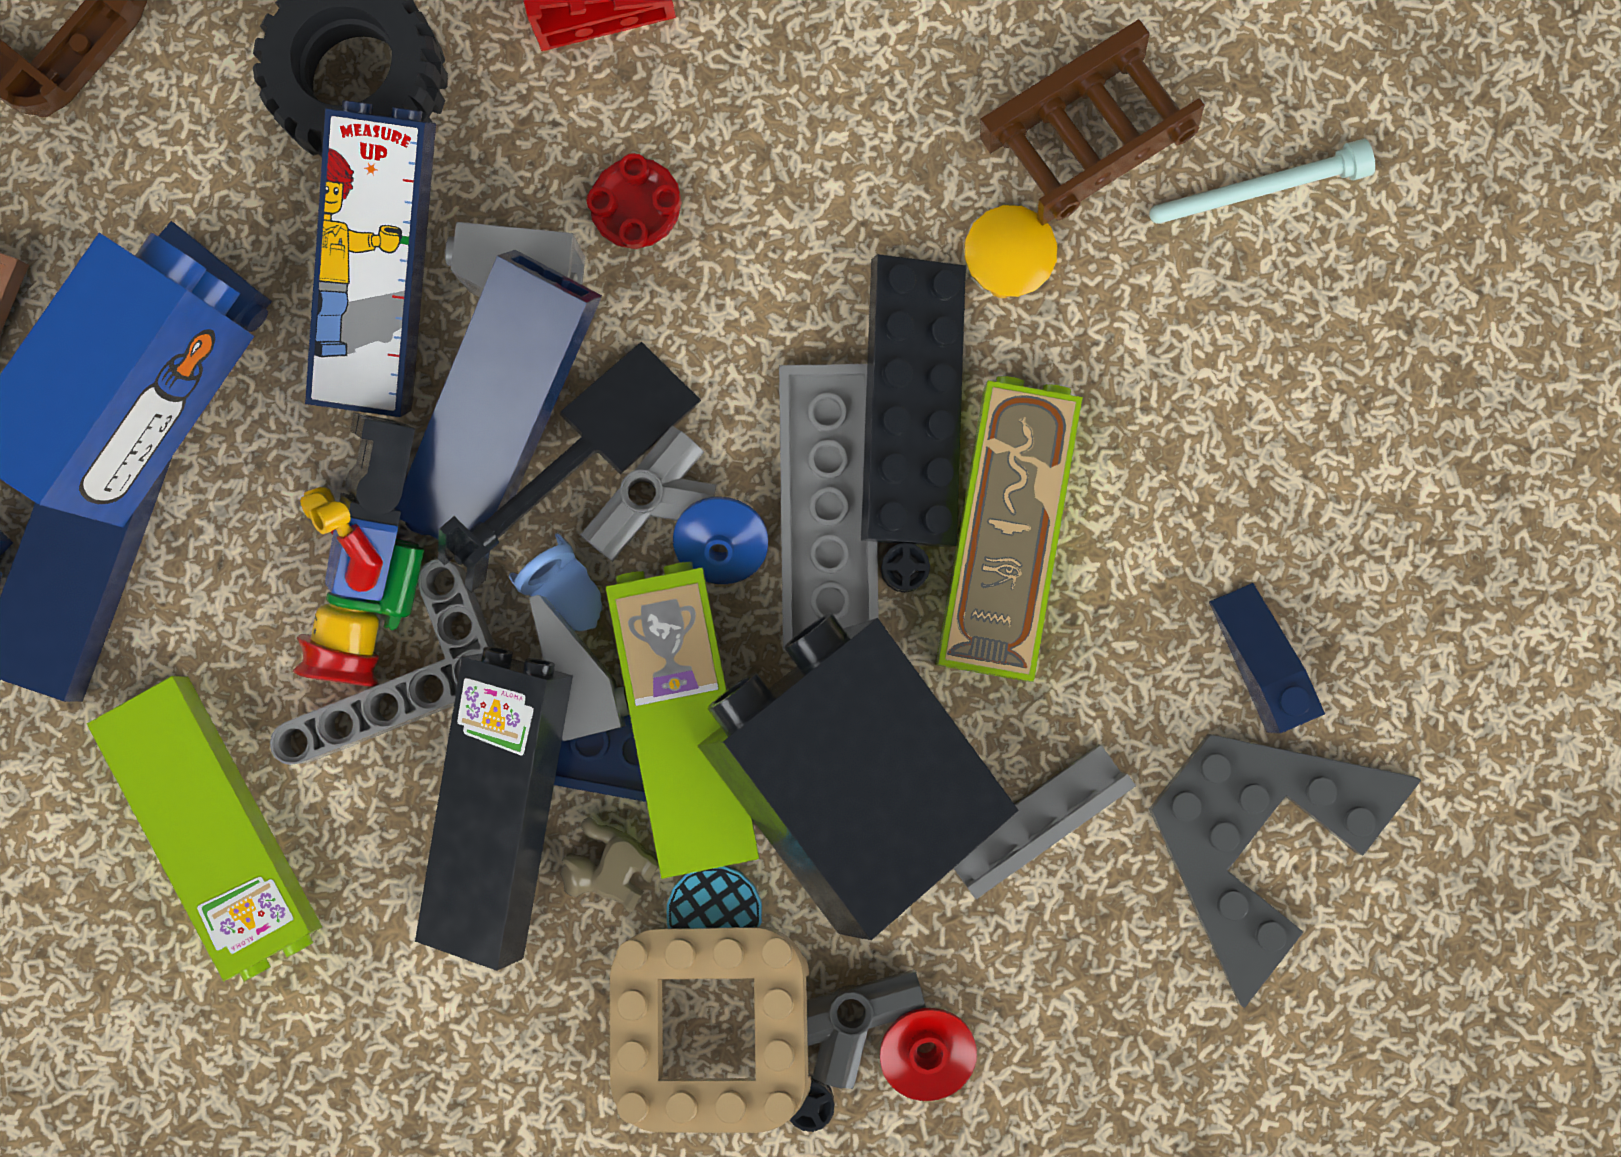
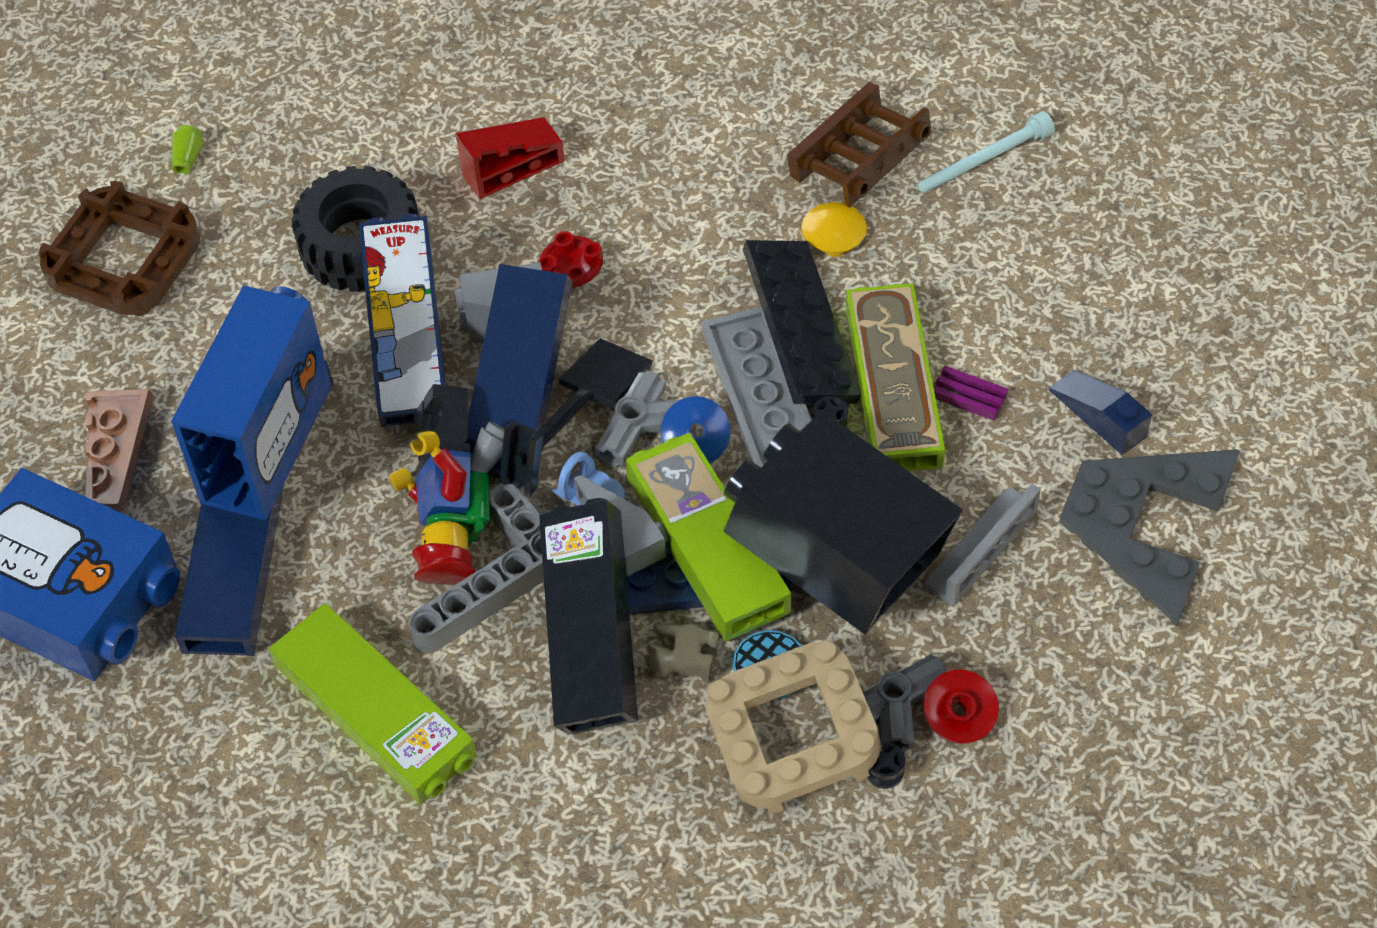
camera: 15 degrees left, 30 degrees down
(430, 512) = (487, 448): none -> light grey cone
(1115, 566) = (972, 388): none -> magenta tile

